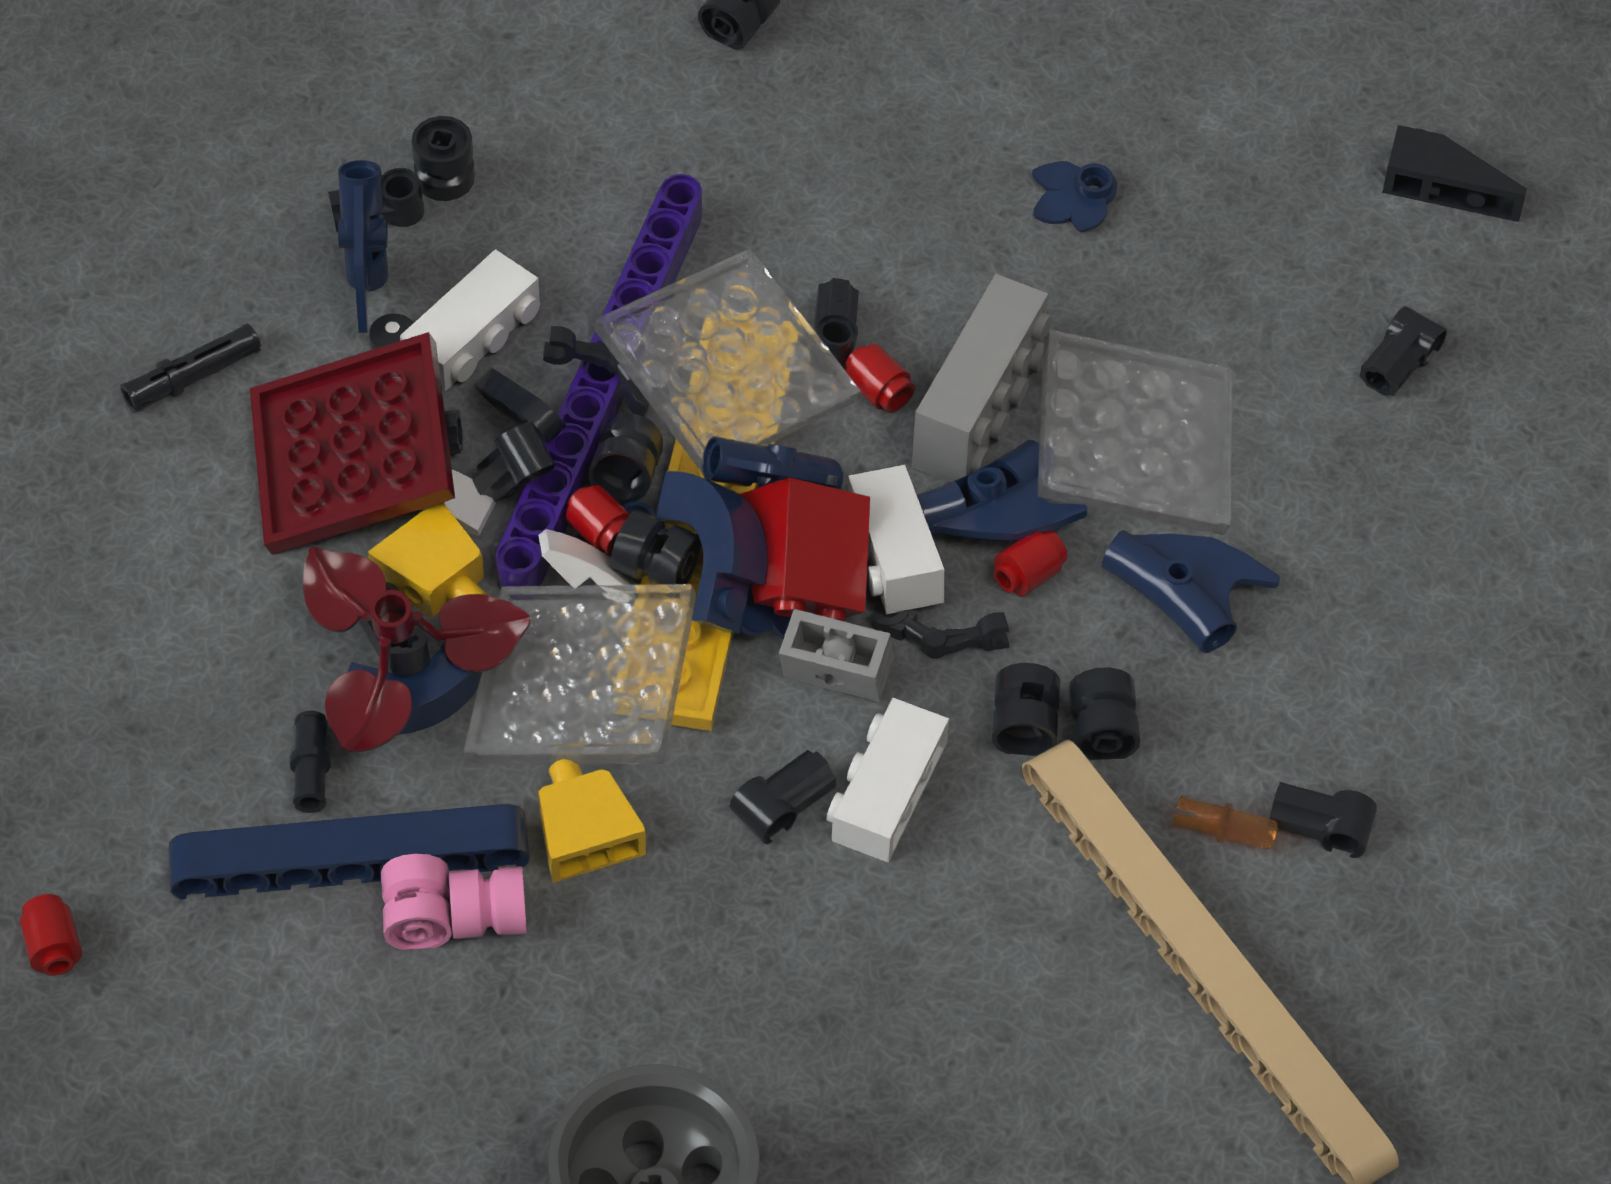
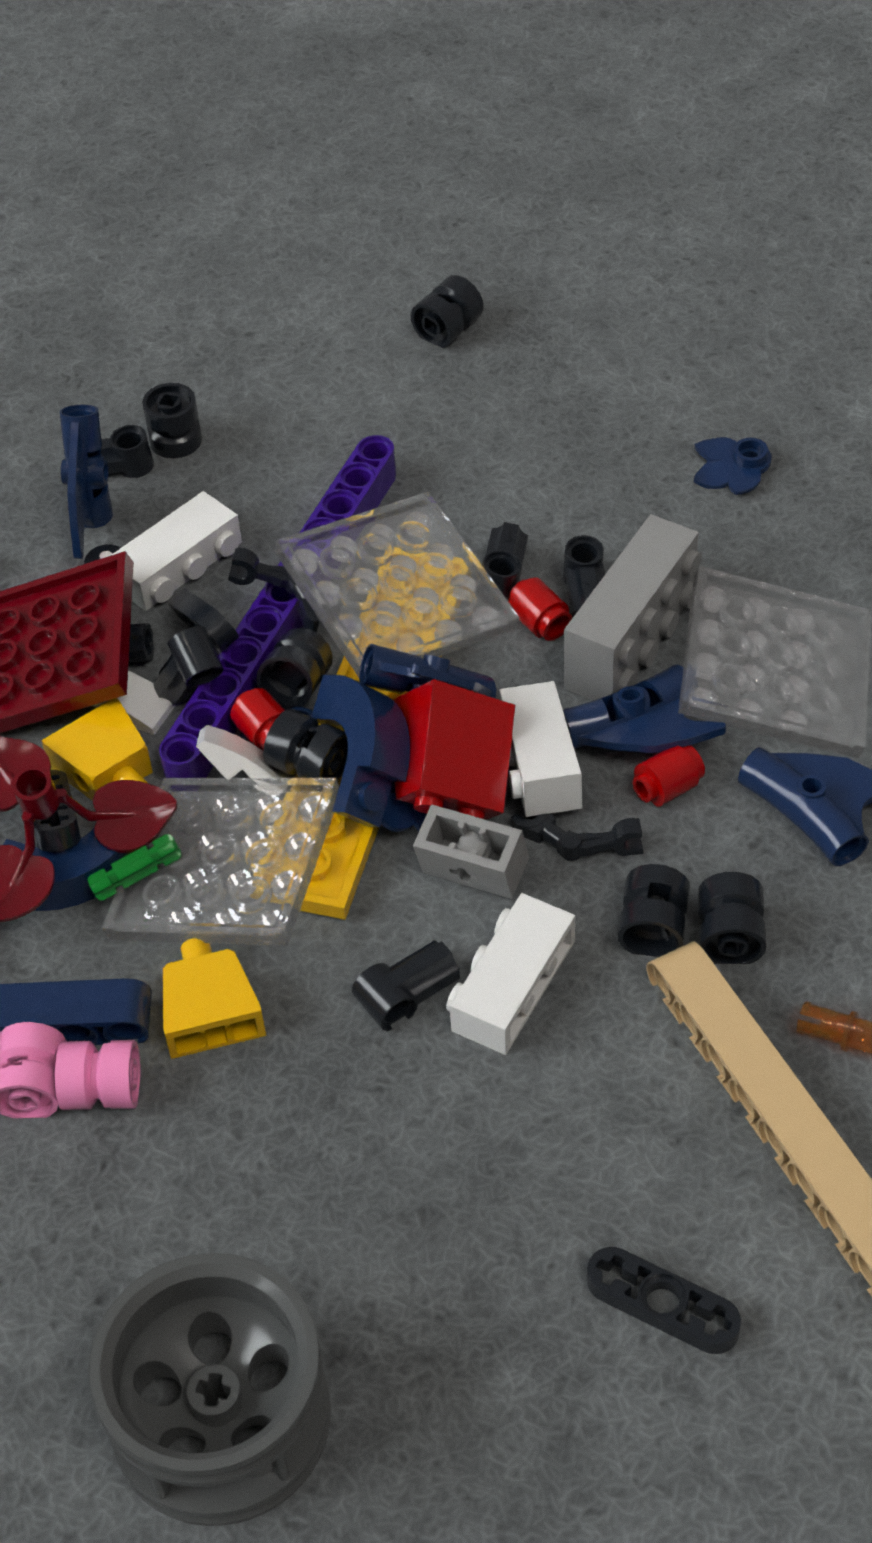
camera: 10 degrees right, 5 degrees down
(491, 686) = (134, 867): none -> green axle
(925, 344) = (582, 569): none -> black piece
(1051, 1068) = (657, 1278): none -> black beam

